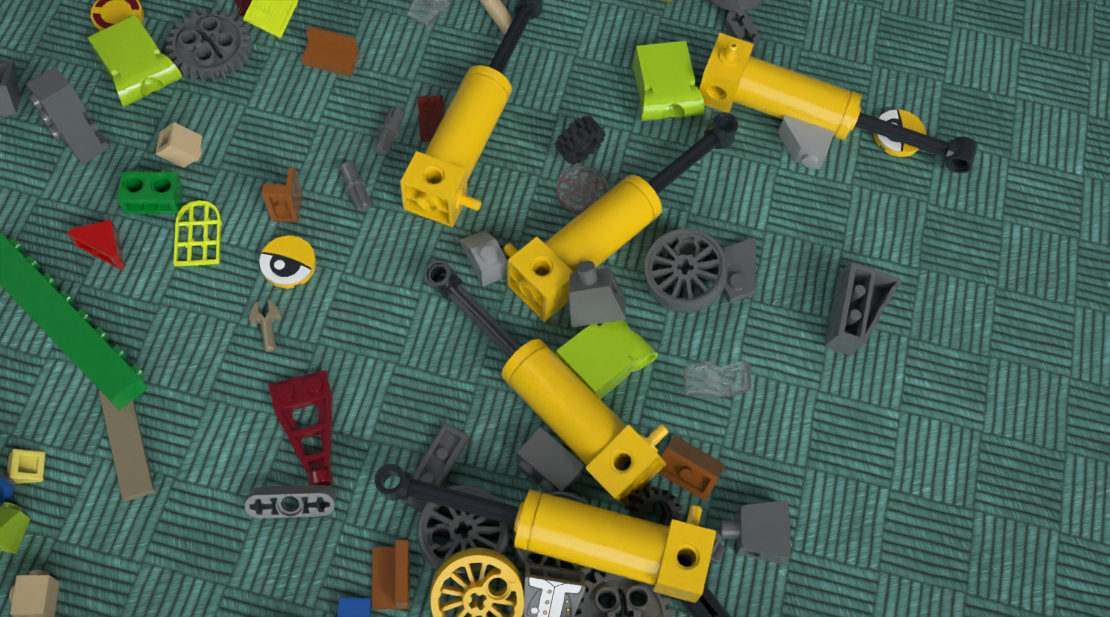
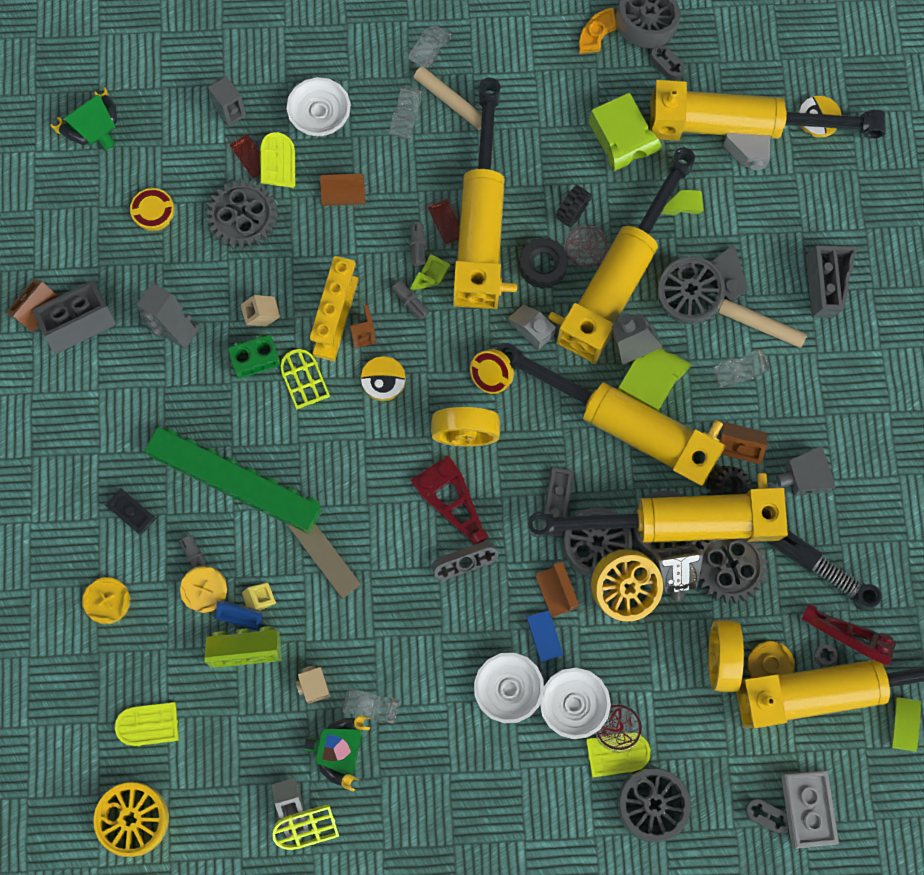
camera: 15 degrees left, 10 degrees up
(100, 241) = (234, 409): red slope -> none
(133, 60) = (189, 249): lime piece -> none
(258, 161) = (334, 308): none -> yellow fence
(266, 323) = (390, 437): dark tan bar -> none
(353, 338) = (465, 426): none -> yellow piece
(390, 168) = (431, 274): none -> lime slope
(414, 289) = (491, 371): none -> yellow tile
(524, 173) = (547, 246): none -> black tyre
(549, 463) = (640, 473): dark grey brick -> none
(712, 175) = (686, 202): none -> lime slope
(761, 335) = (762, 323): none -> tan piece

